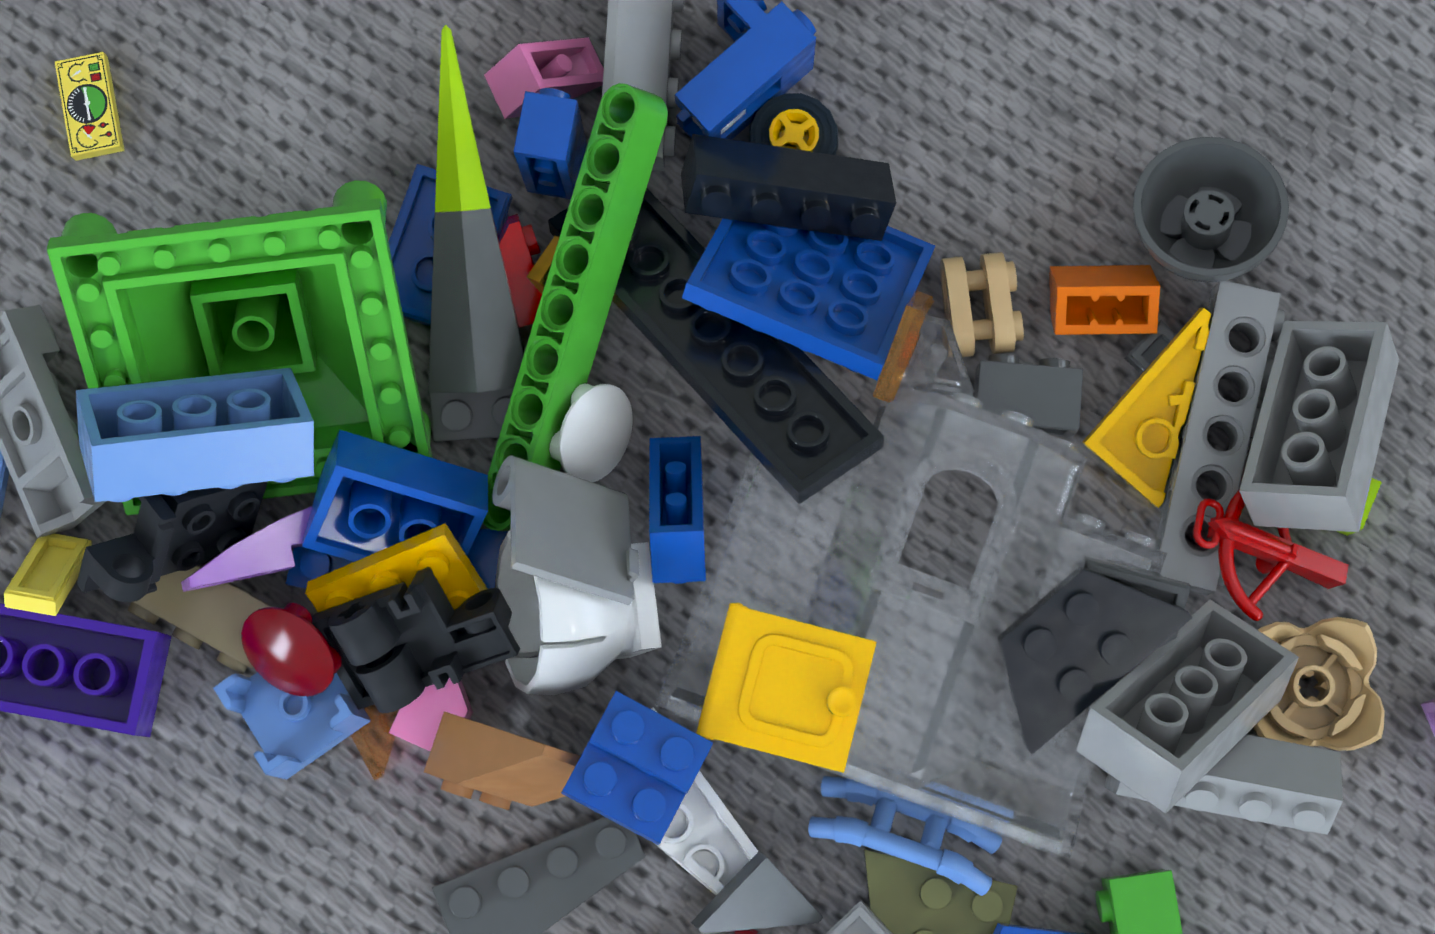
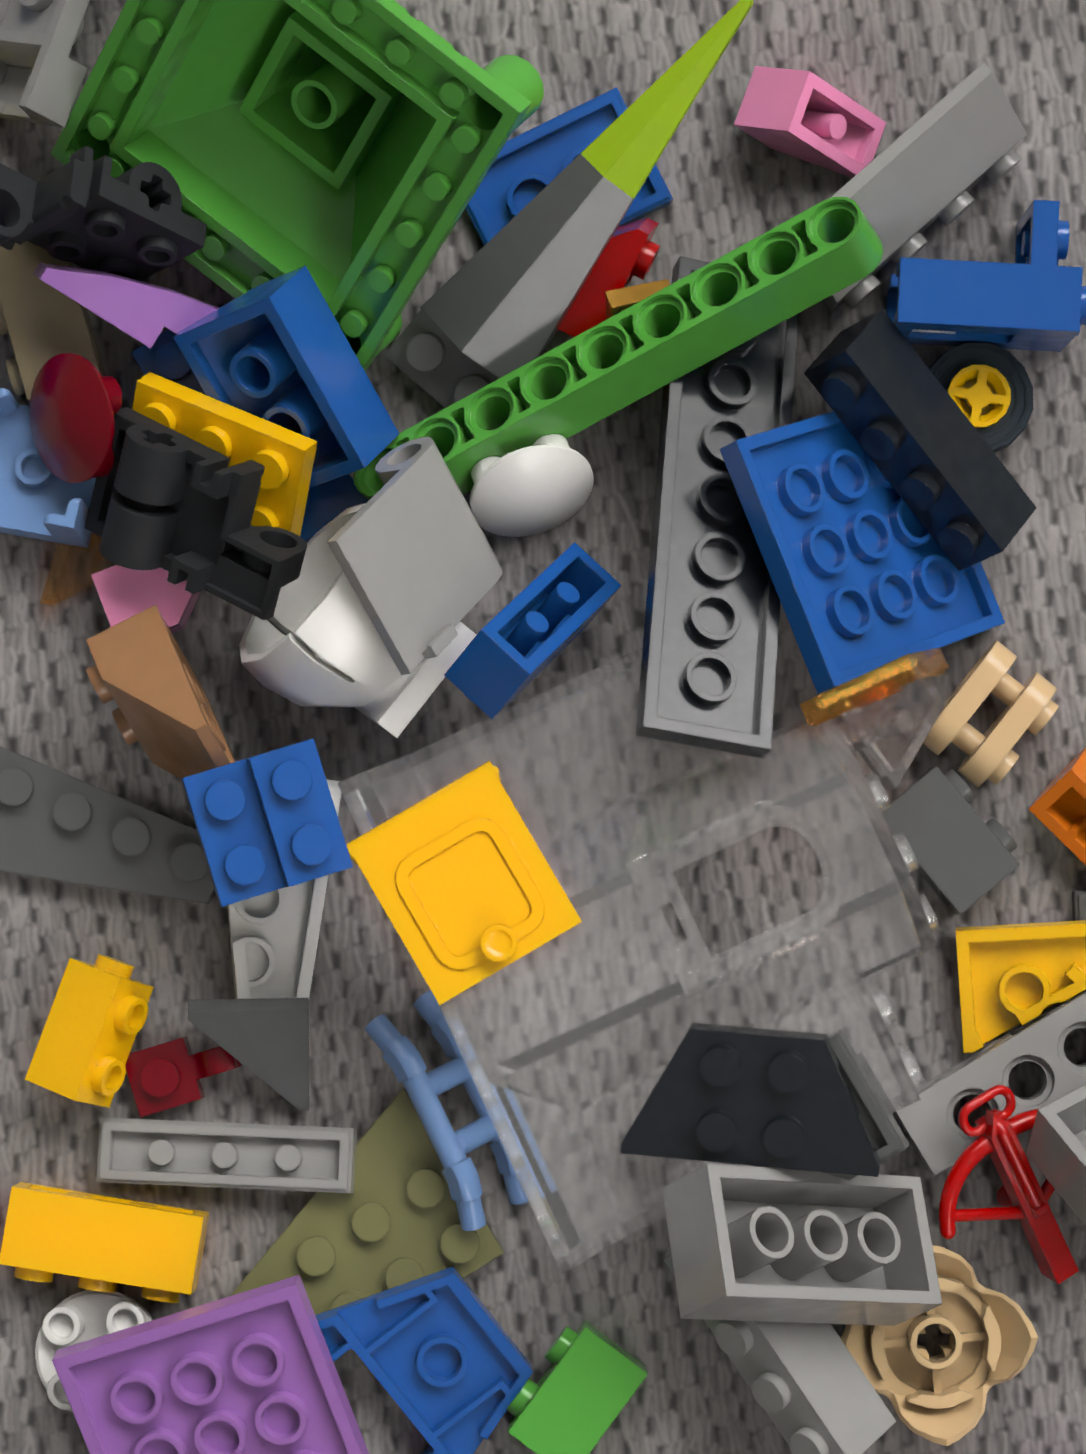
camera: 40 degrees right, 5 degrees up
(194, 434) = (173, 147): medium blue brick -> none
(550, 143) = (747, 190): blue brick -> none

